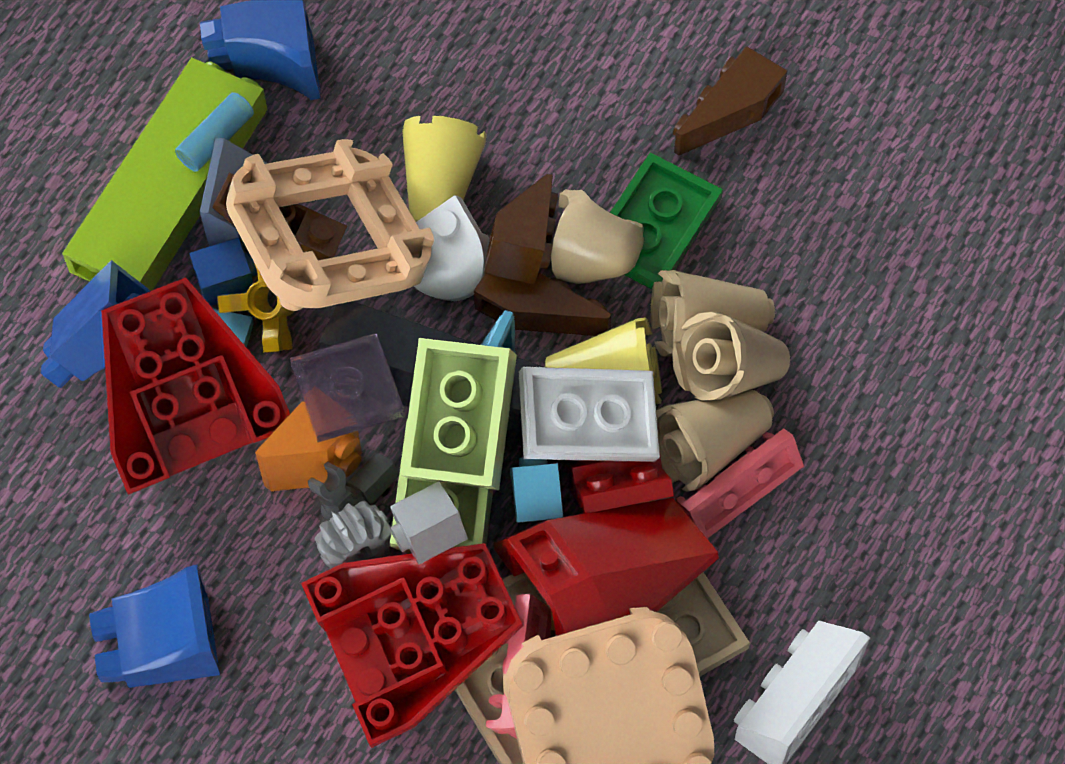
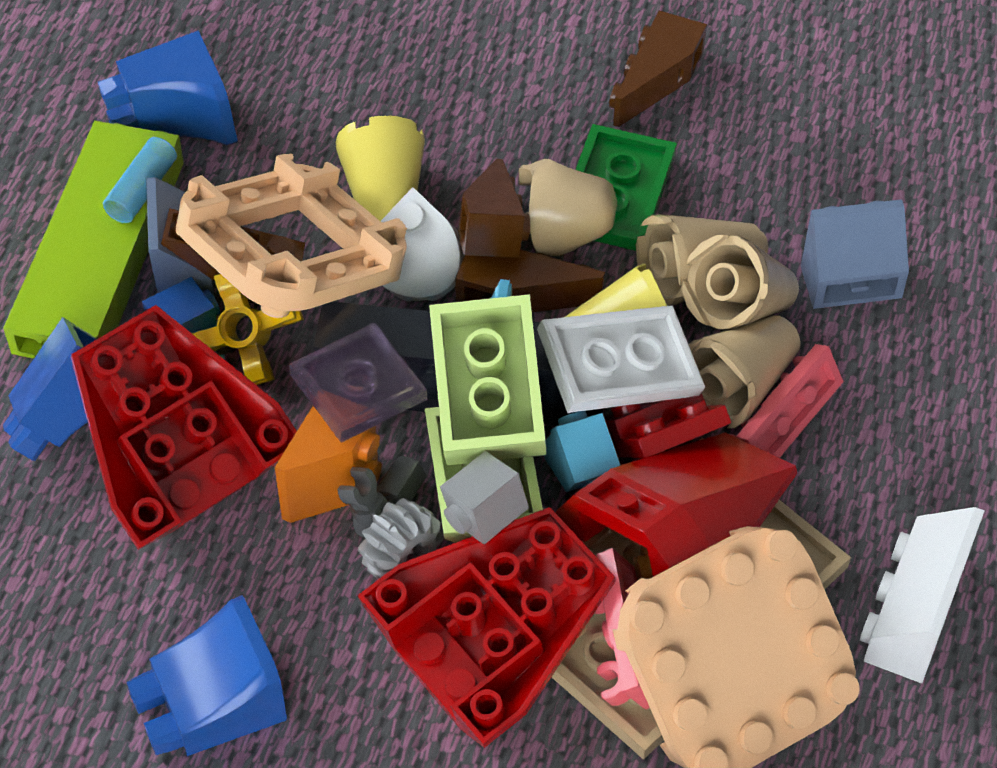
camera: 15 degrees left, 10 degrees down
(850, 345) = (856, 254): none -> sand blue slope

